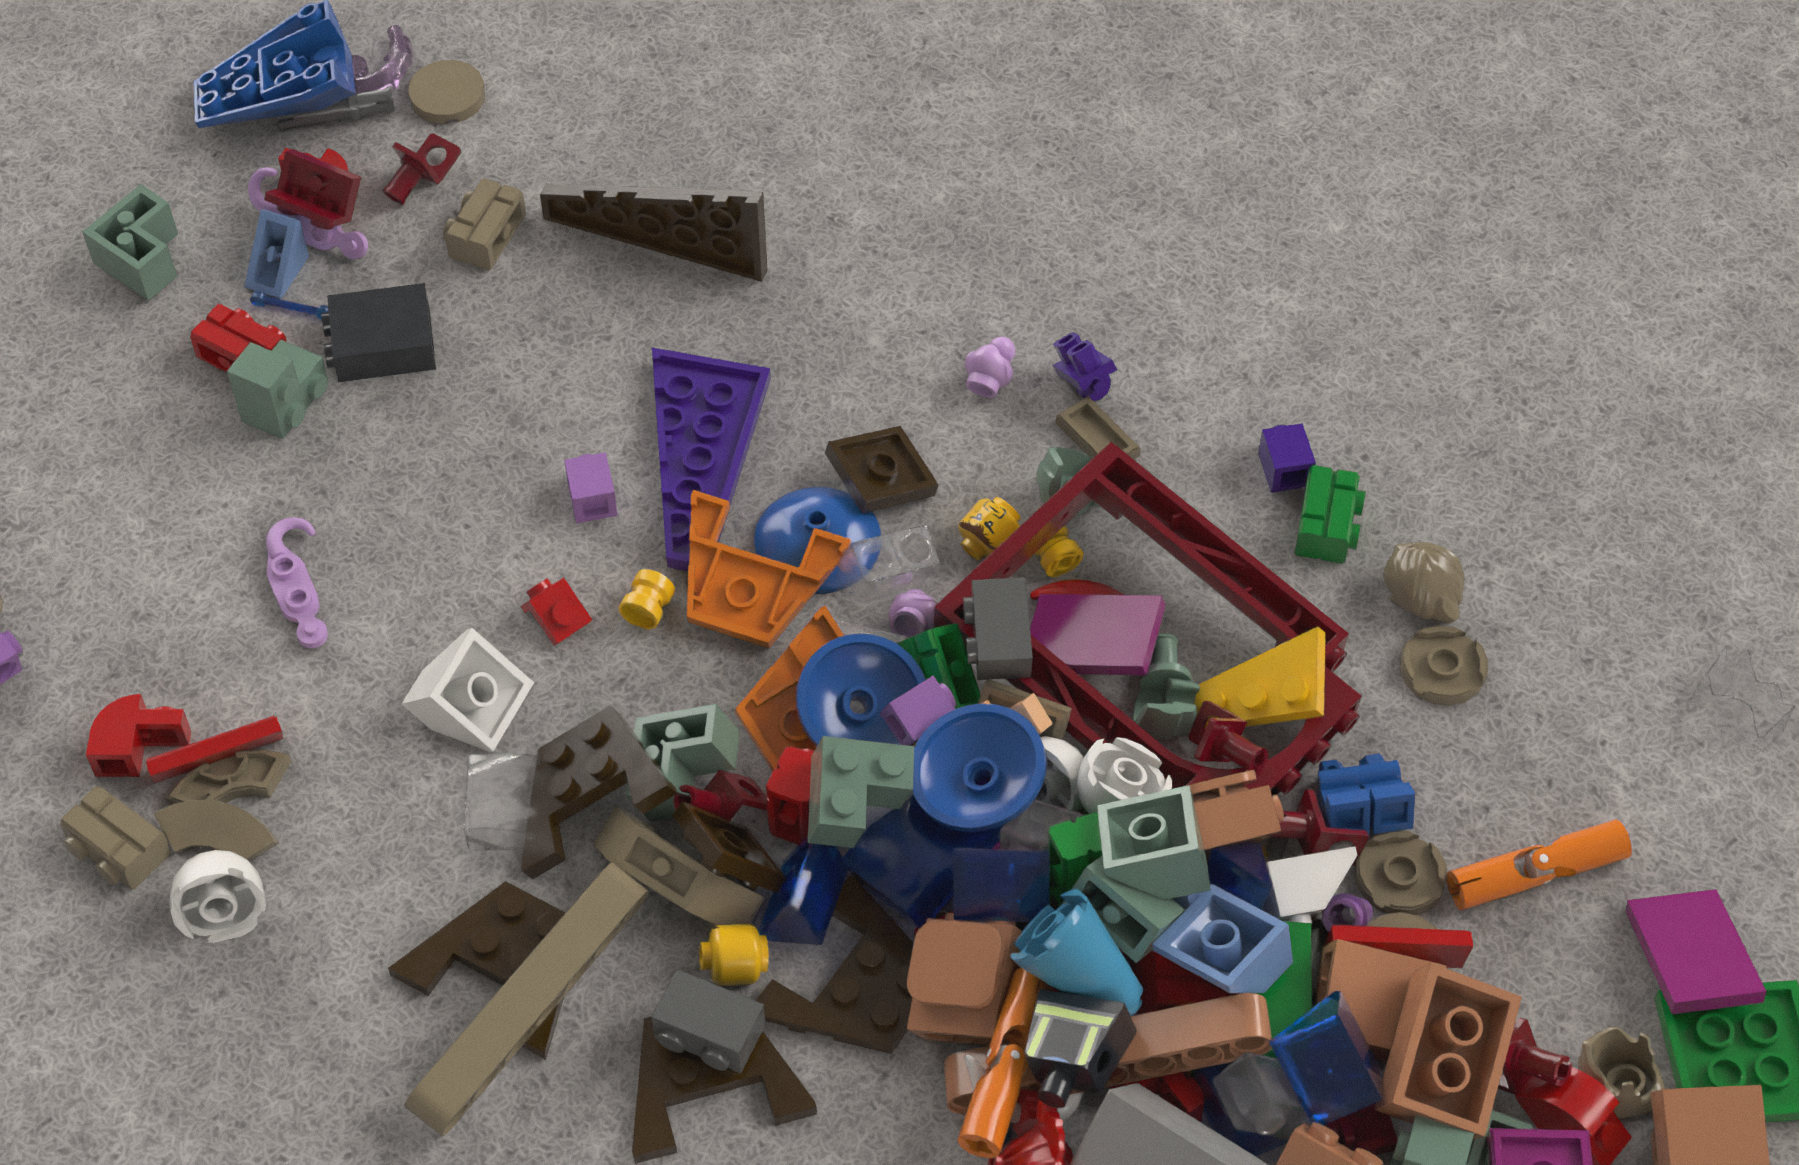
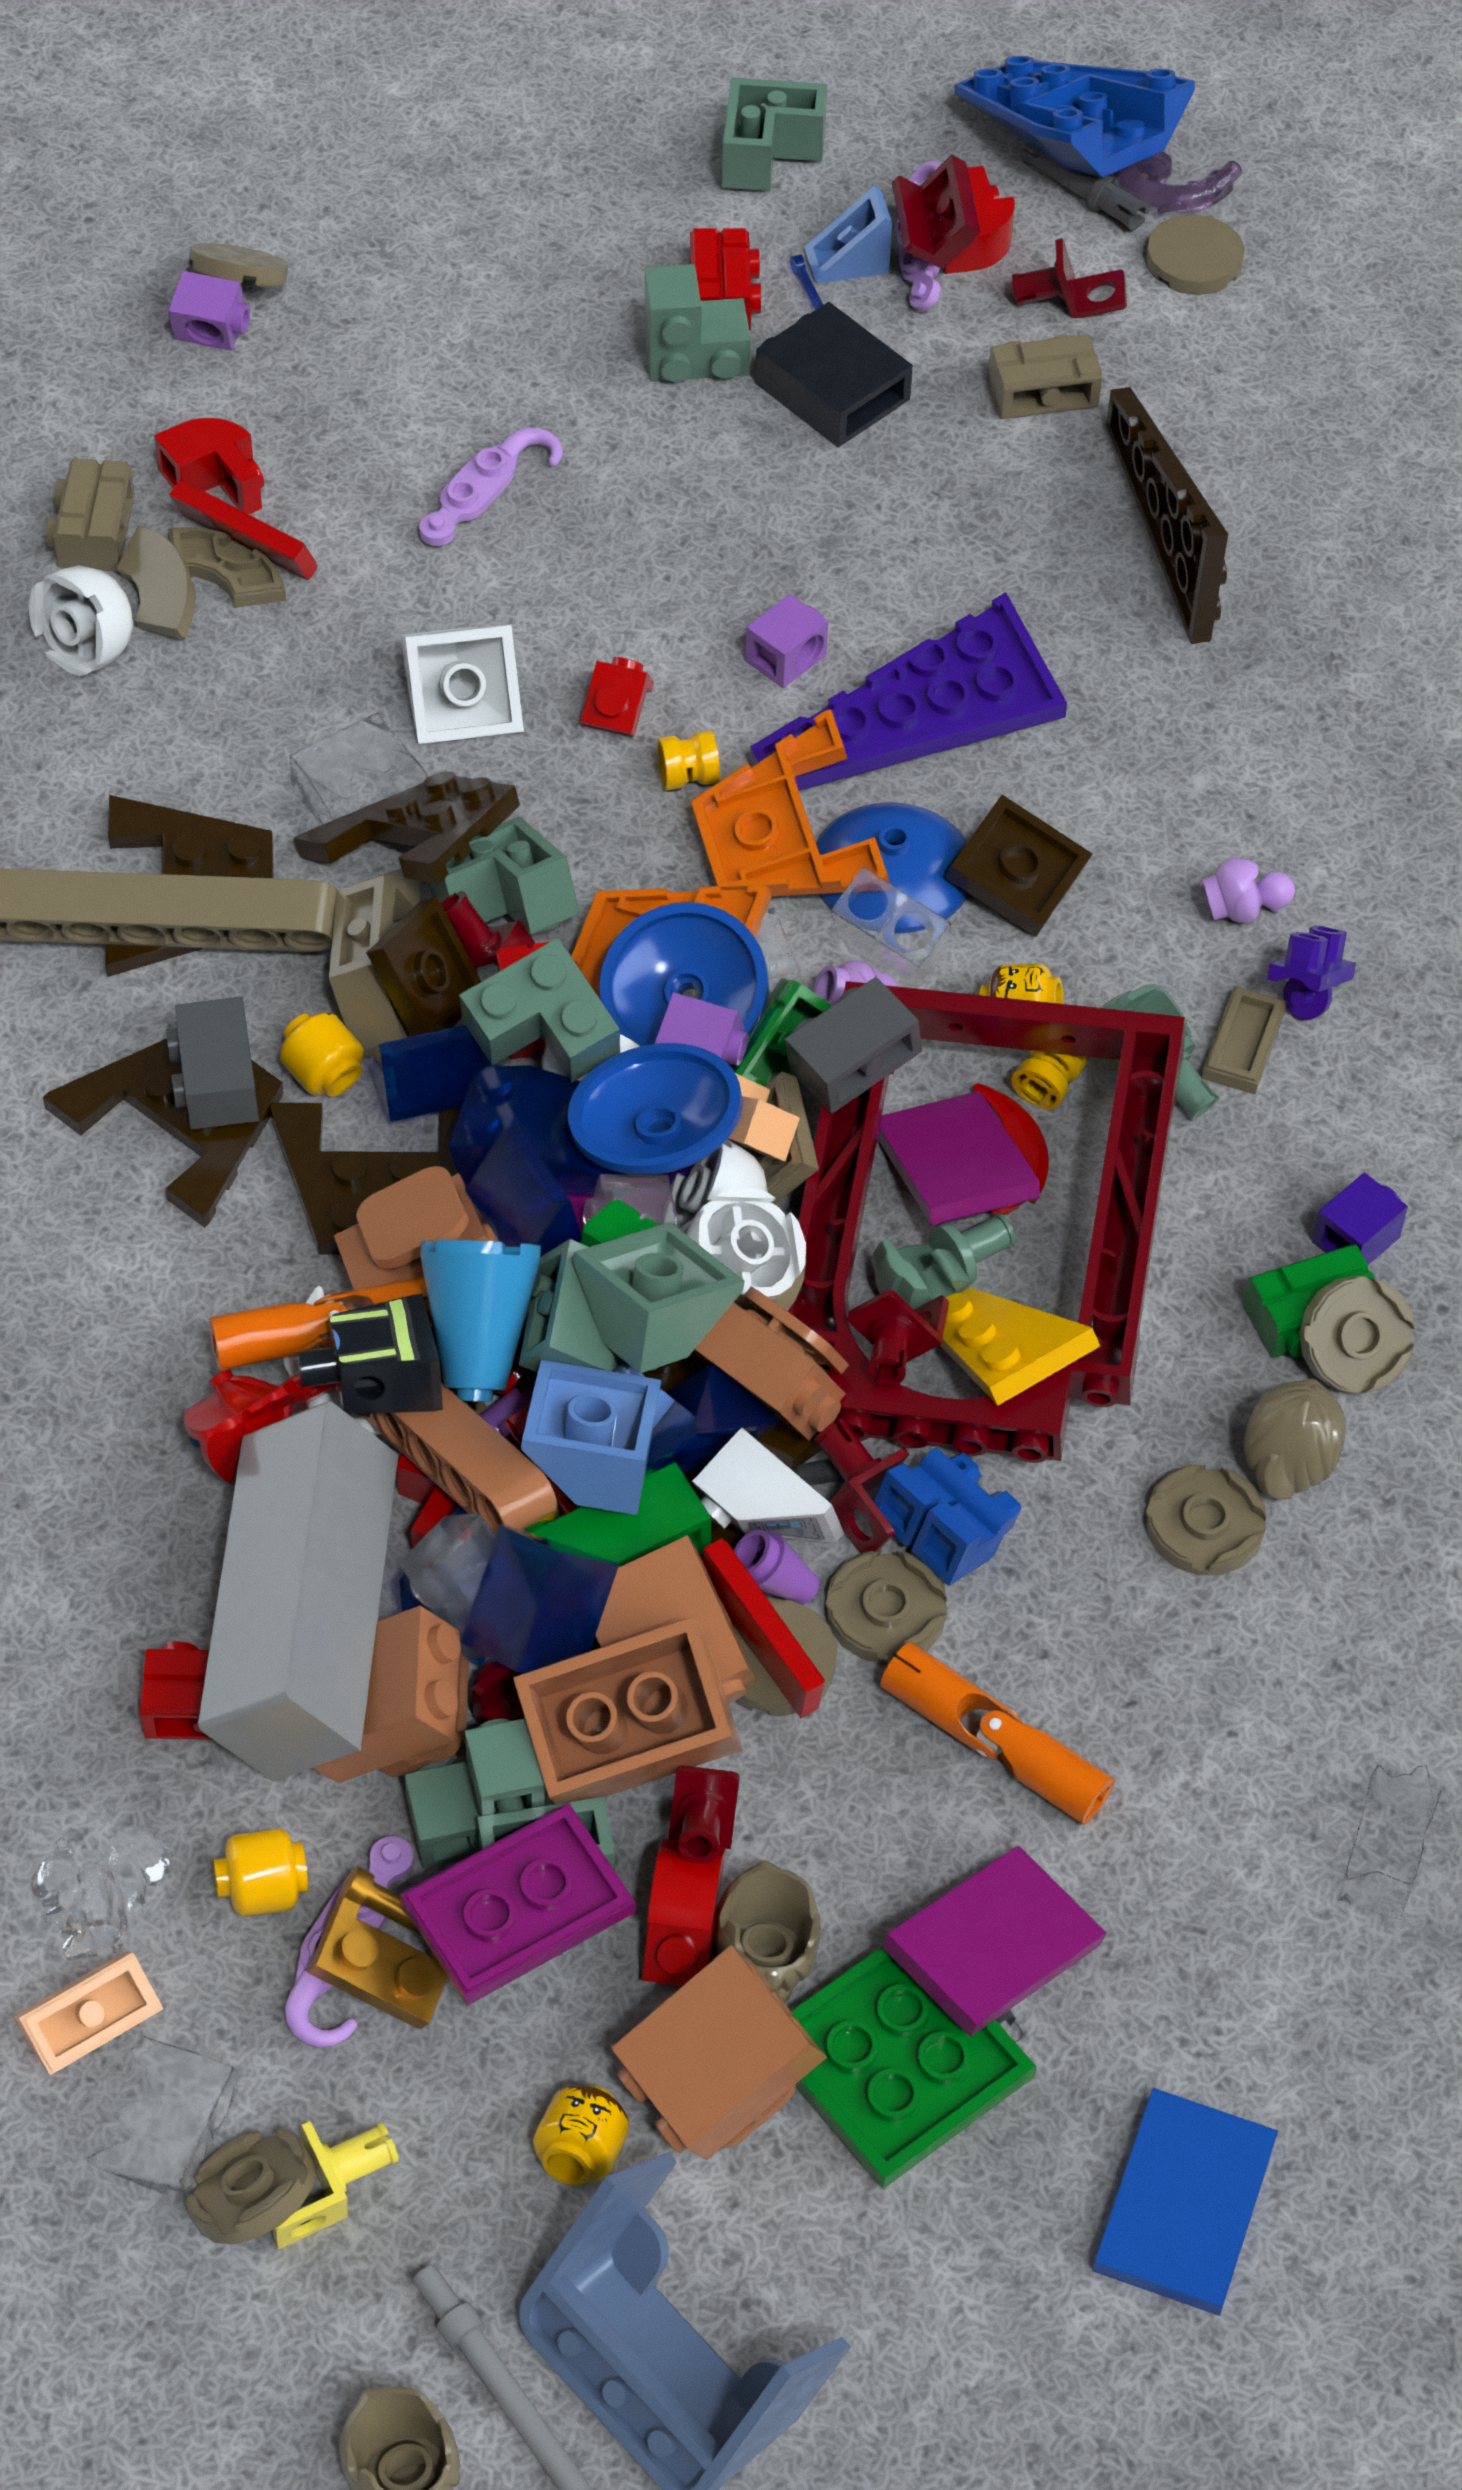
camera: 55 degrees right, 0 degrees up
(1374, 505) = (1357, 1334): none -> dark tan tile

